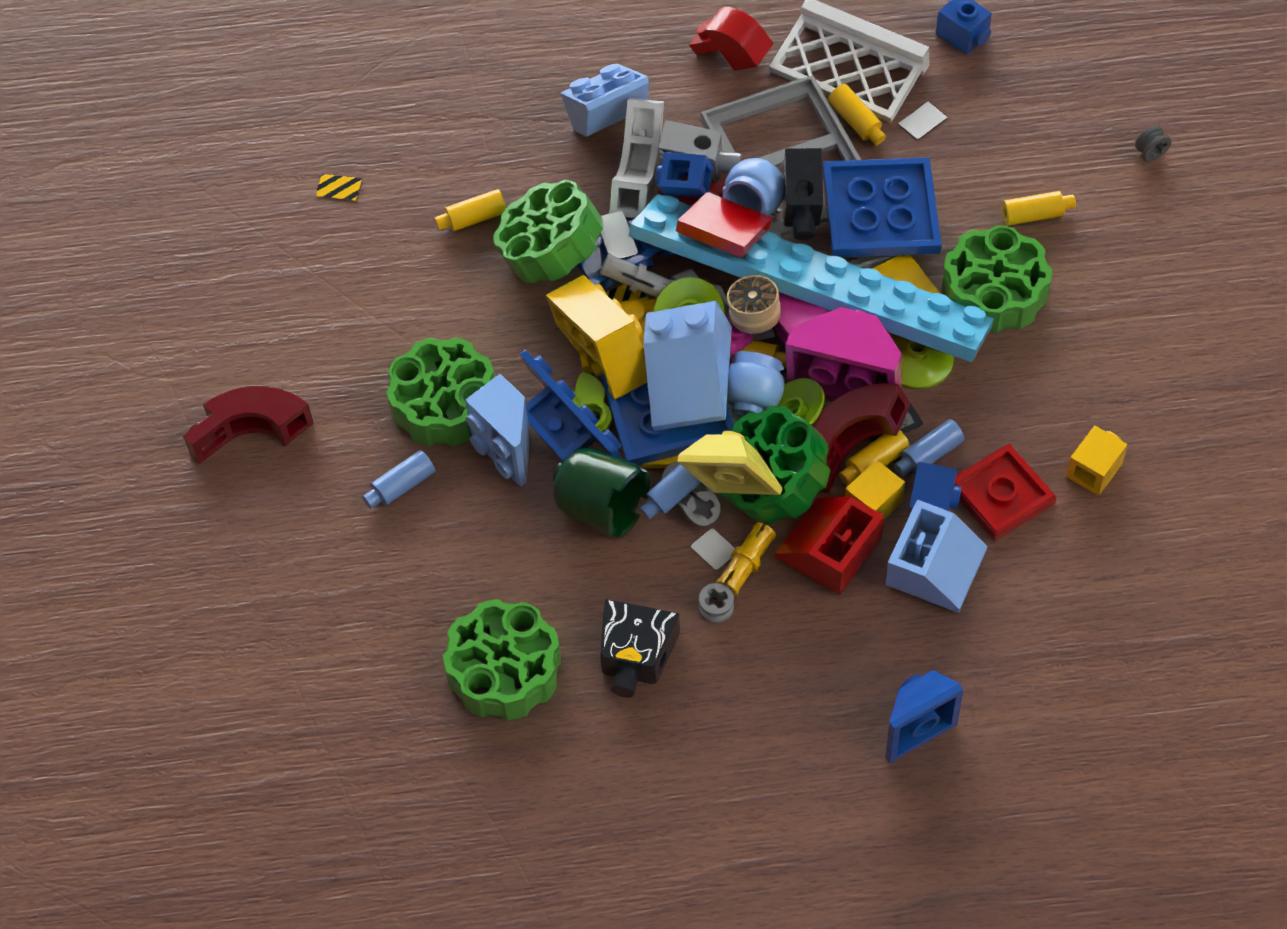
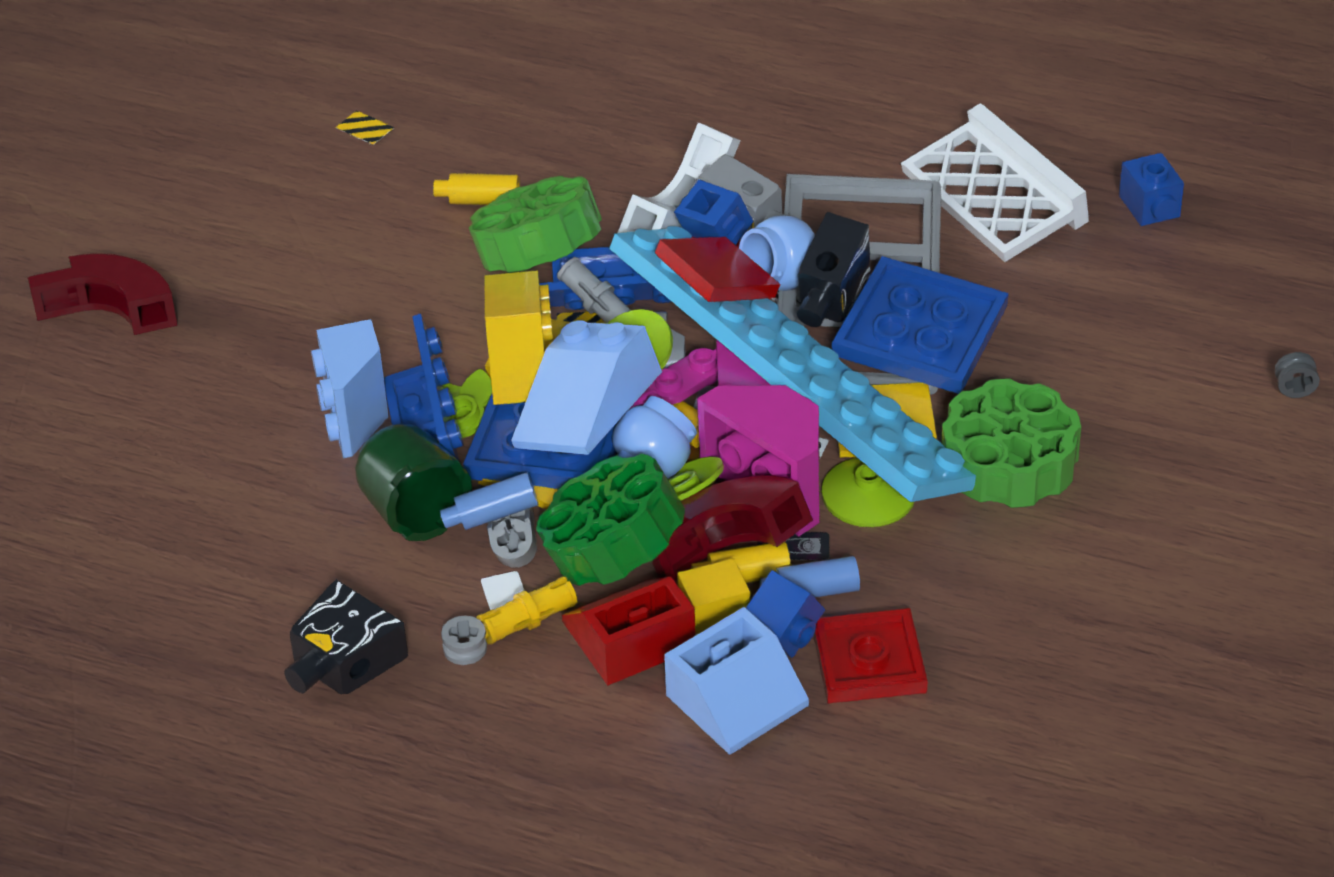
camera: 25 degrees right, 15 degrees down
(399, 480) = (218, 401): medium blue cylinder -> none
(436, 392) = (289, 324): bright green connector -> none
(502, 659) = (193, 602): bright green connector -> none
(603, 99) = (673, 124): light blue slope -> none
(616, 235) = (601, 259): white sticker -> none
(729, 465) = (549, 490): light yellow slope -> none
(735, 36) = (875, 117): red brick -> none
(754, 304) = (699, 358): tan wheel -> none
(856, 114) = (964, 234): yellow cylinder -> none
(922, 120) = (1043, 270): white sticker -> none
(922, 711) = (594, 831): blue slope -> none
(1036, 207) = (1111, 392): yellow cylinder -> none
(1096, 460) = (999, 660): yellow brick -> none

